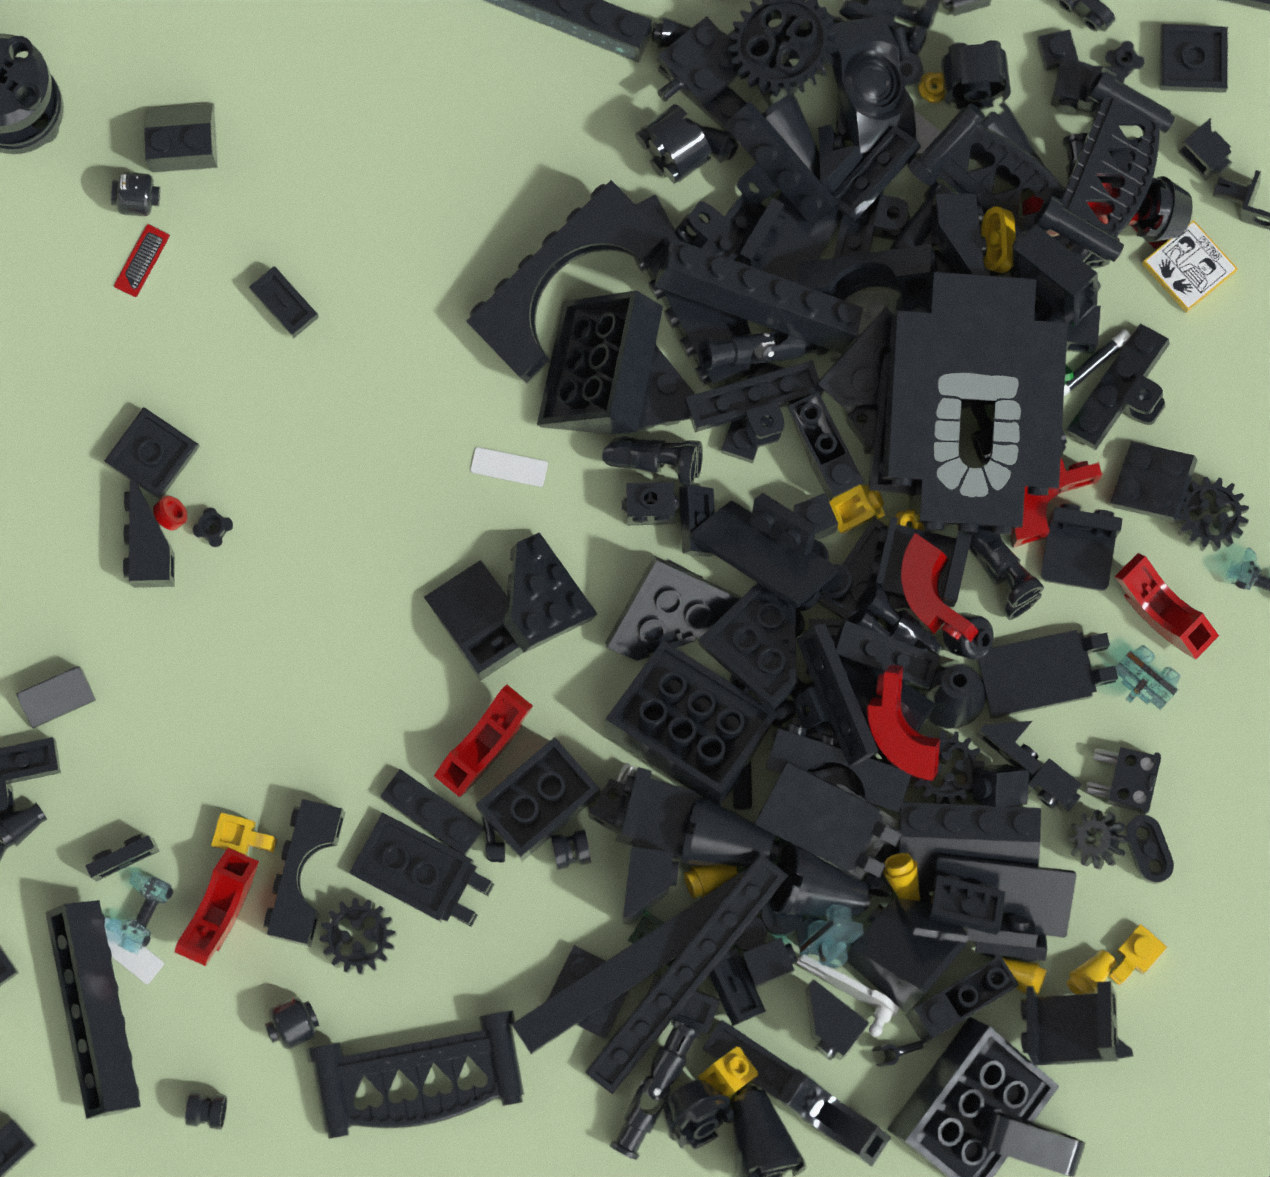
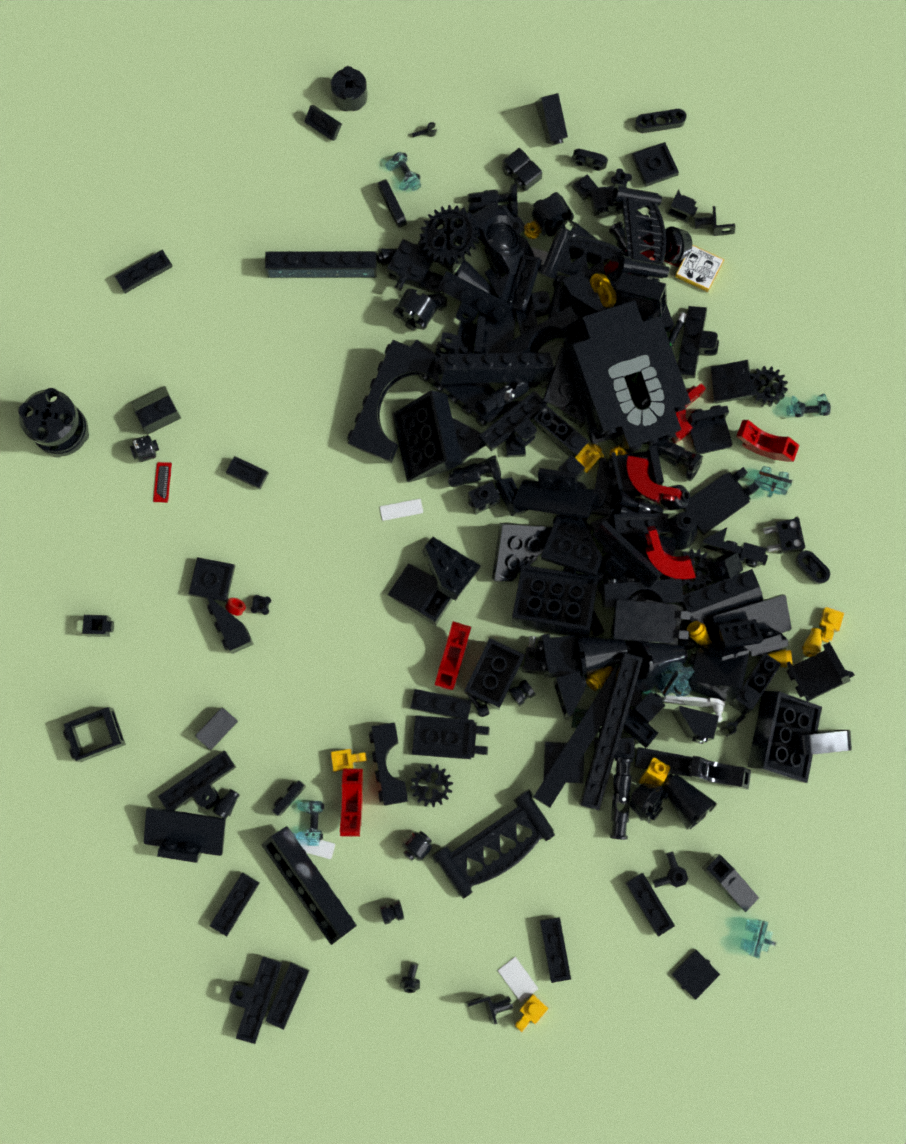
camera: 25 degrees left, 0 degrees up
(1109, 841) = (779, 575): black gear -> none

